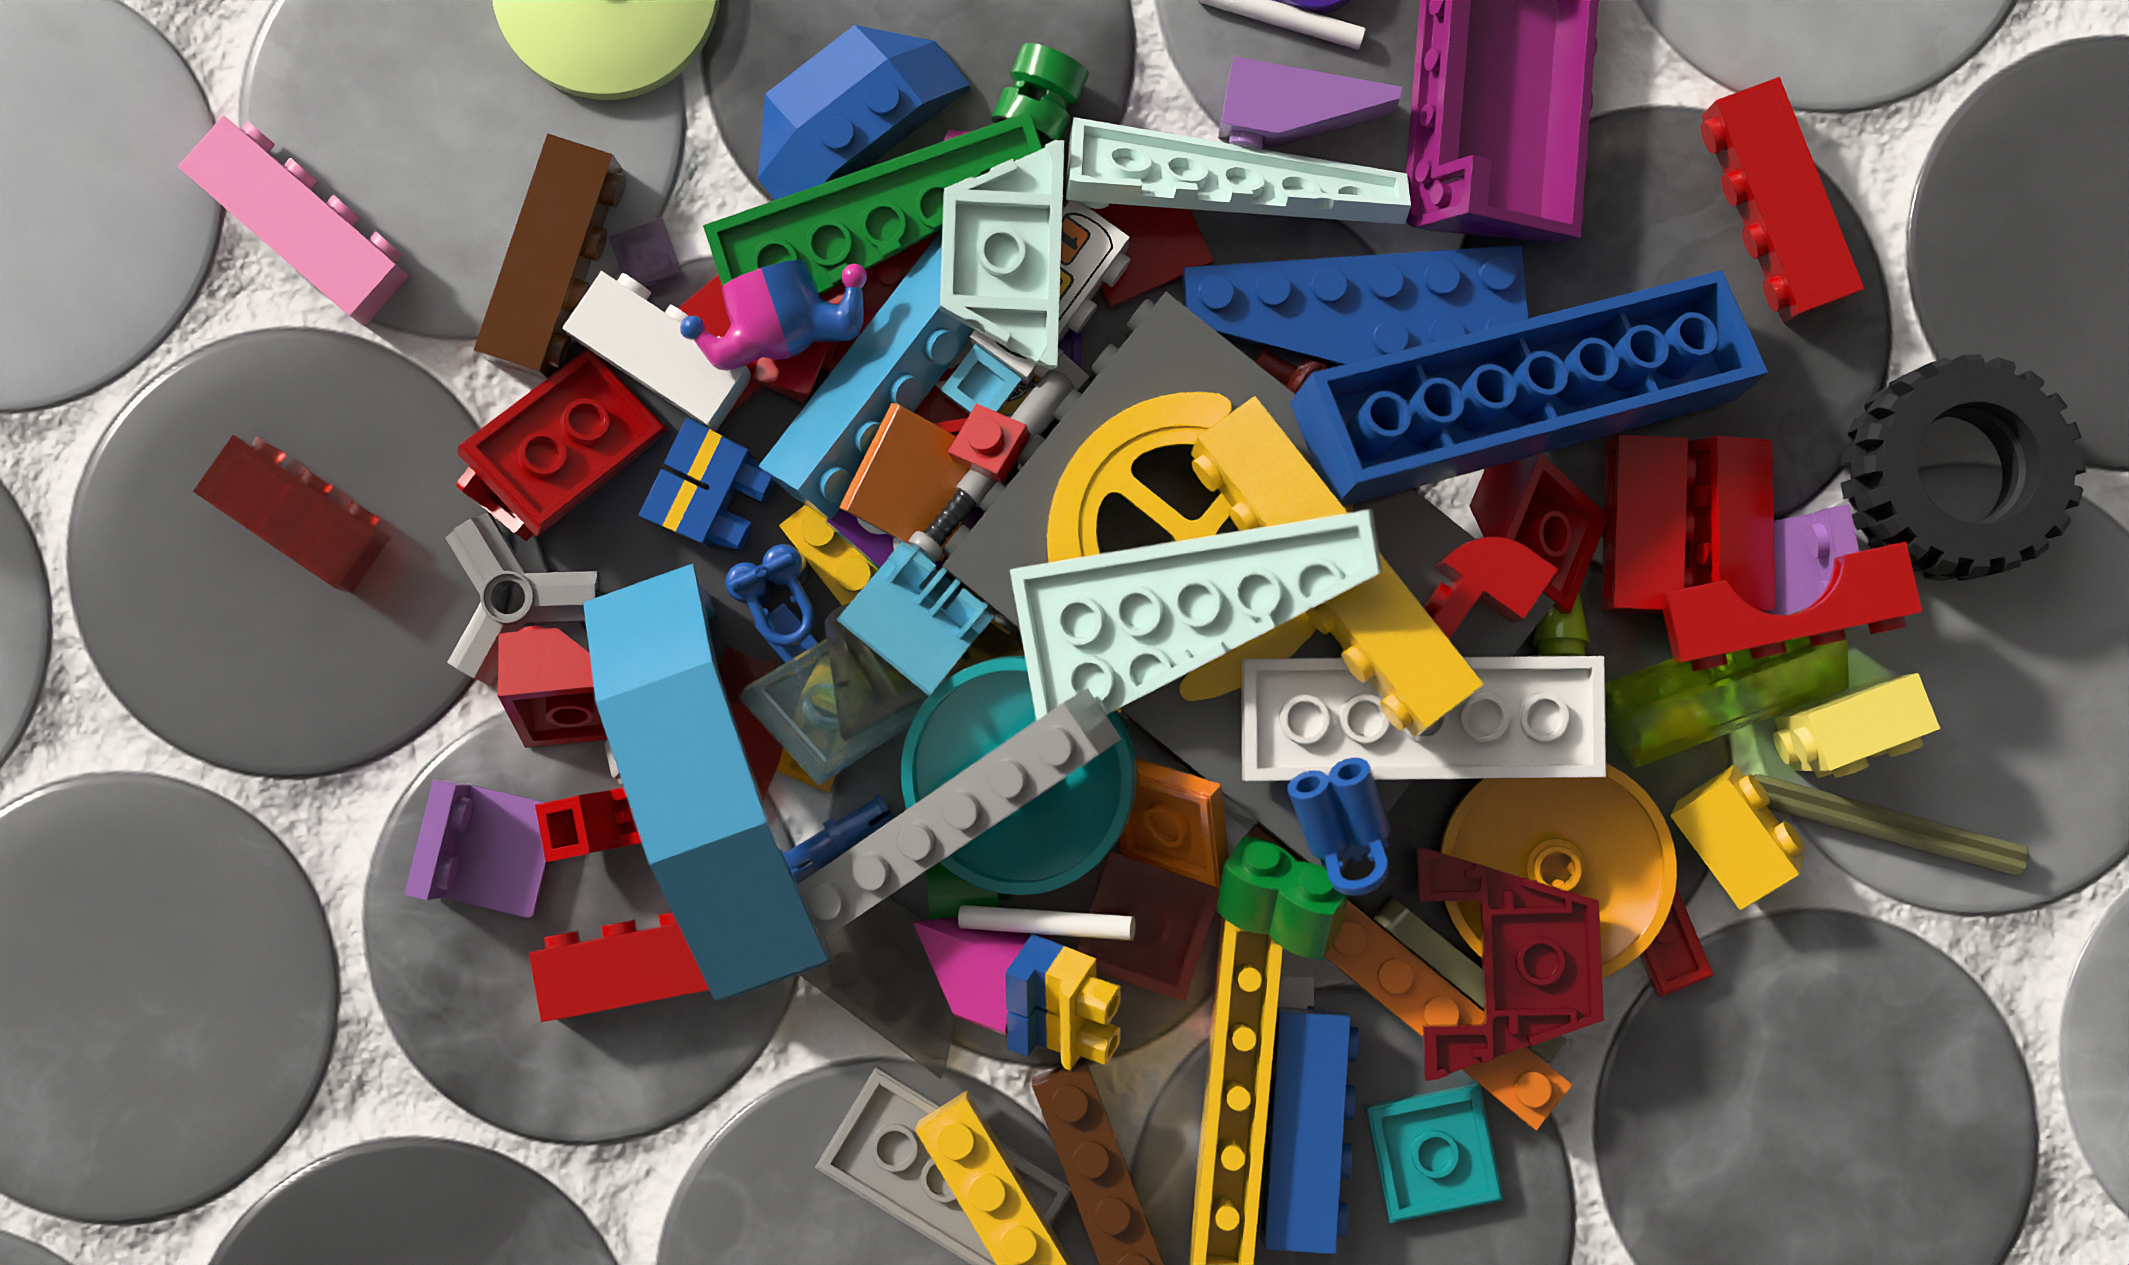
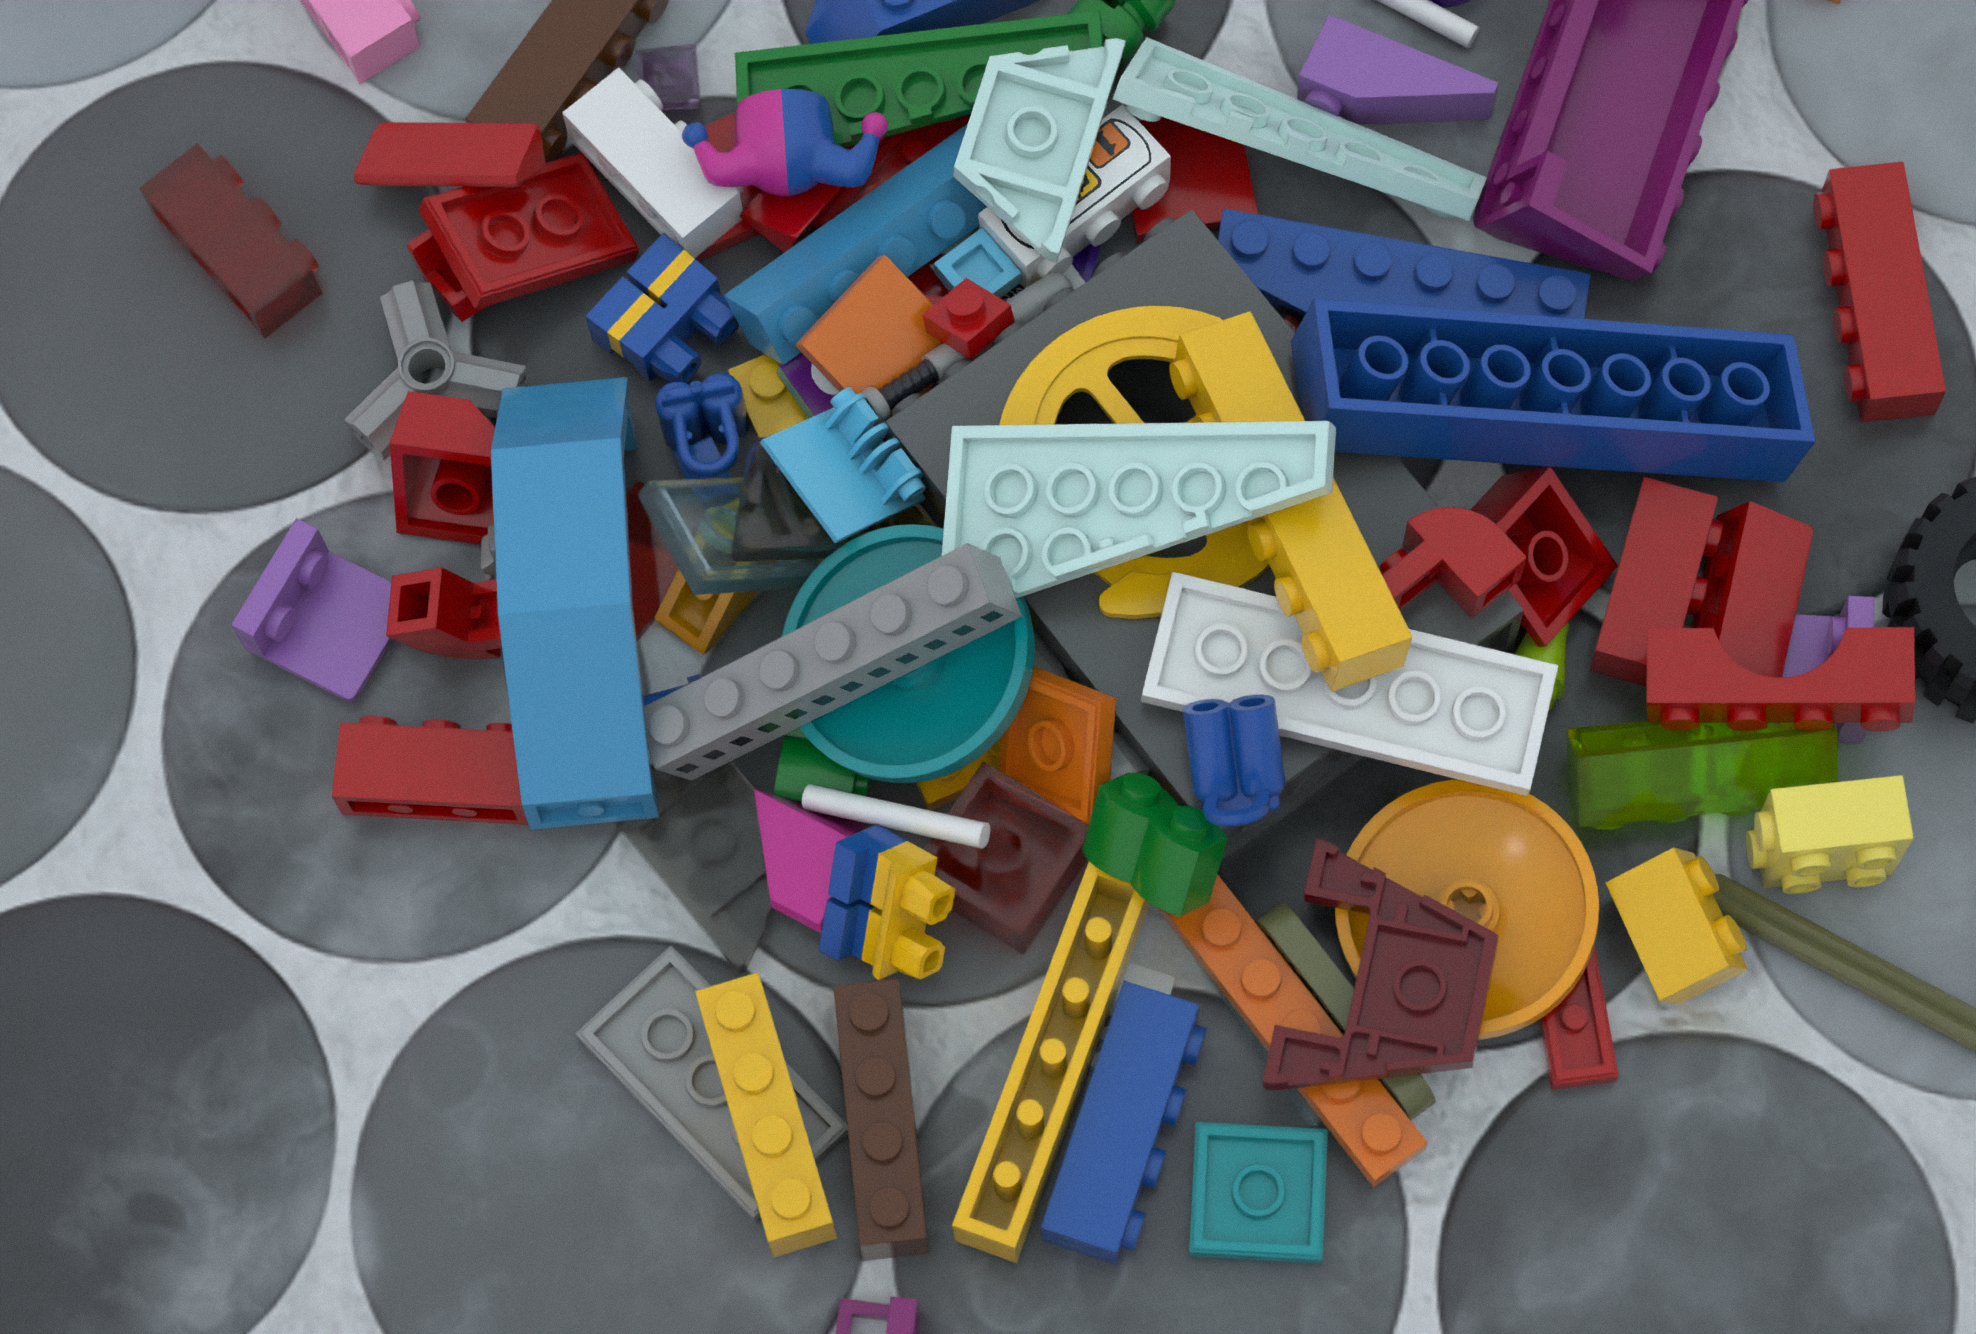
camera: 25 degrees right, 15 degrees down
(471, 389) = (451, 154): none -> red slope

